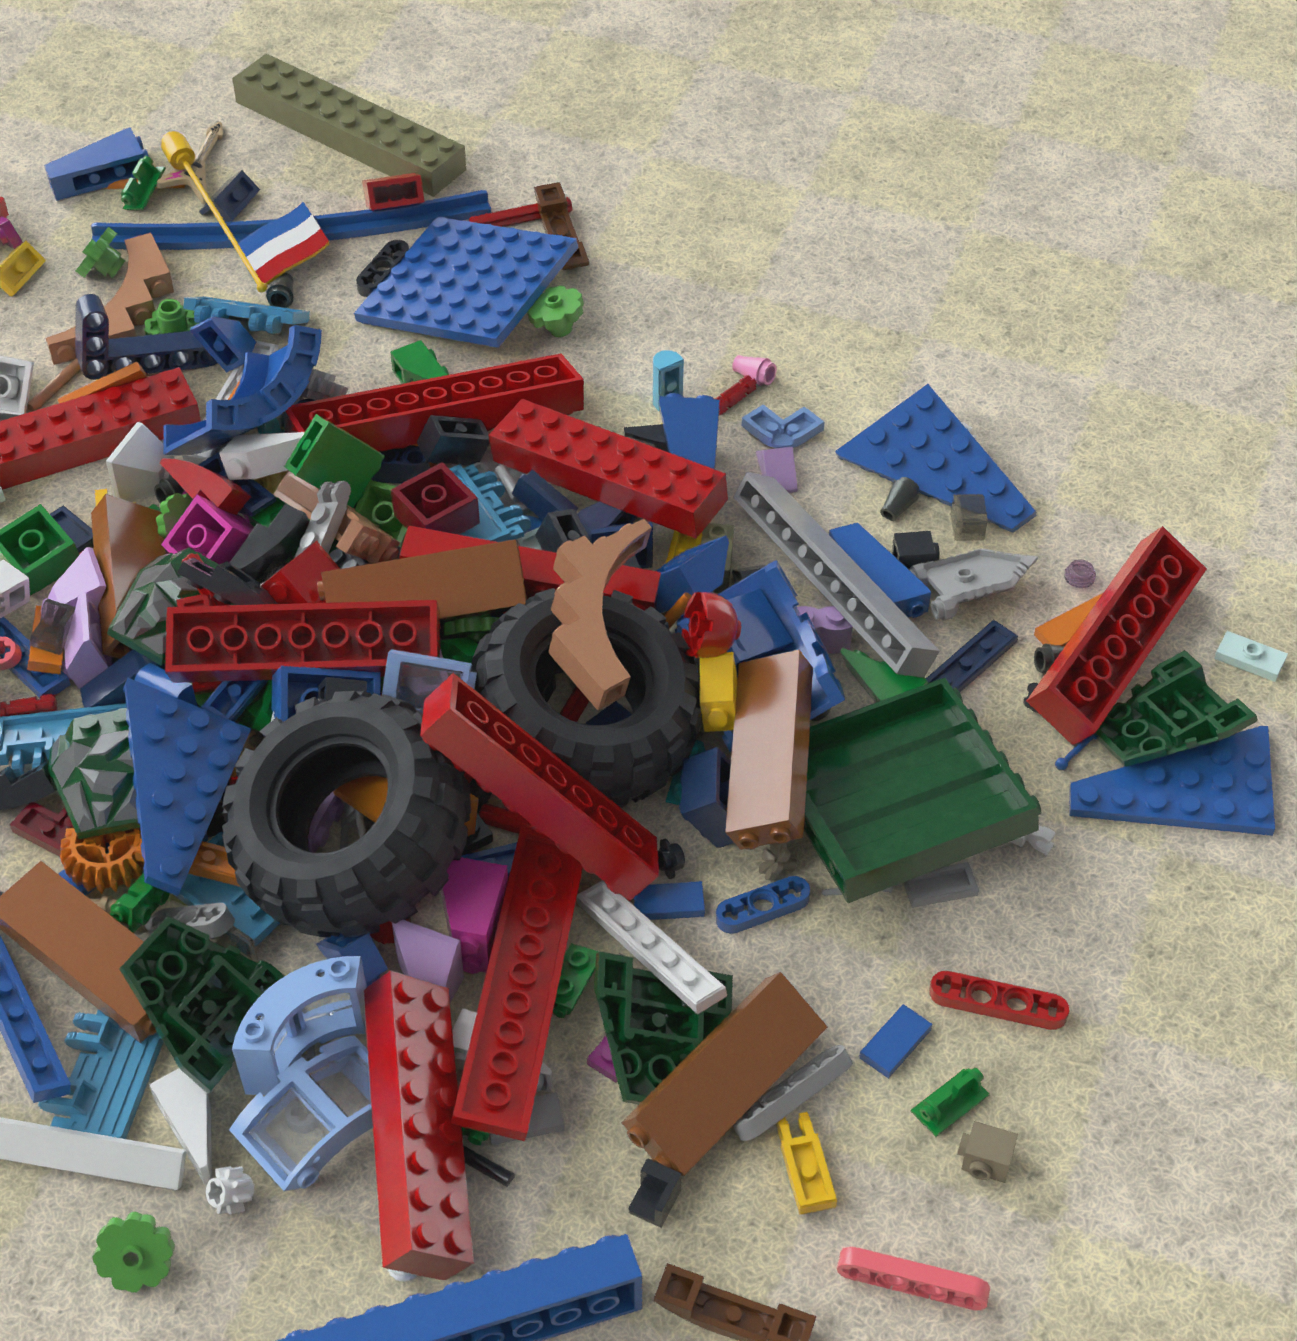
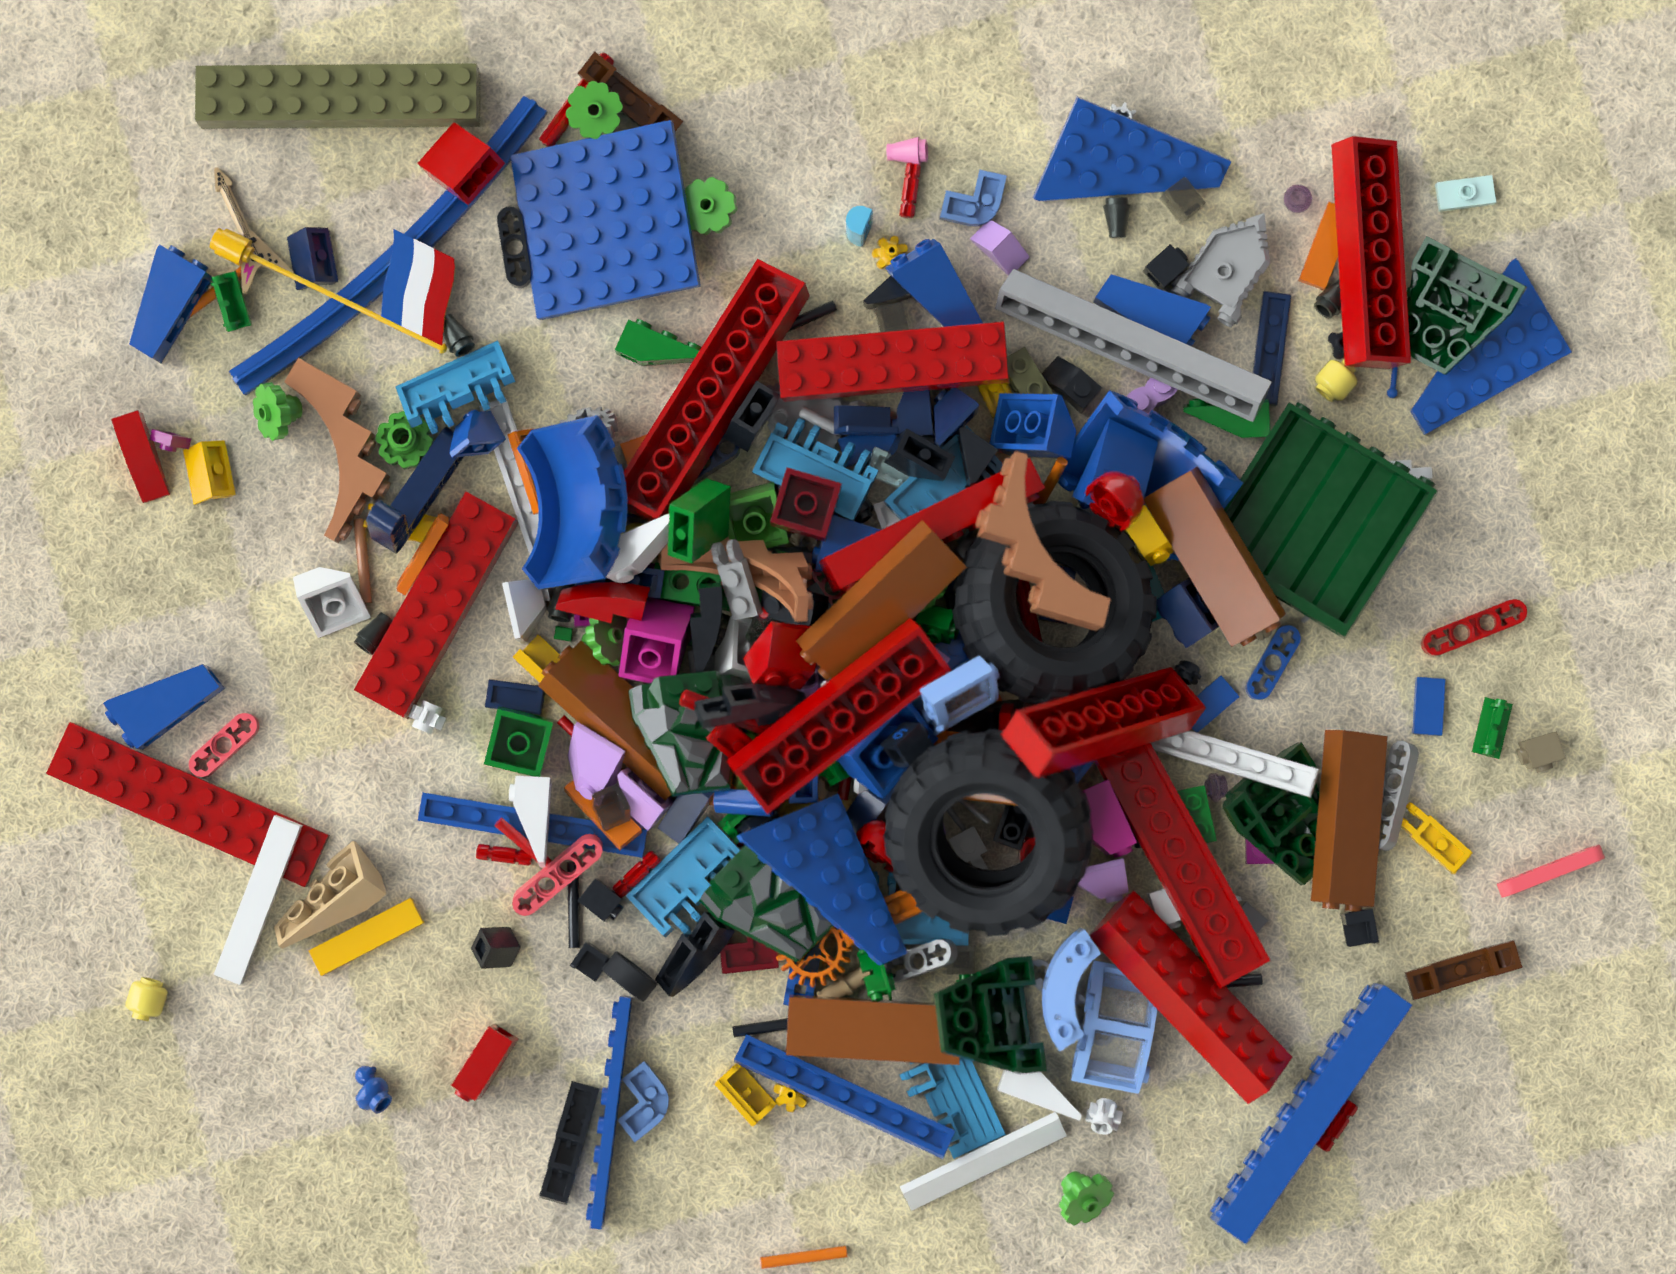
camera: 35 degrees left, 35 degrees up
(525, 211) = (609, 106): none -> bright green plant
(1010, 718) = (1335, 380): none -> light yellow head

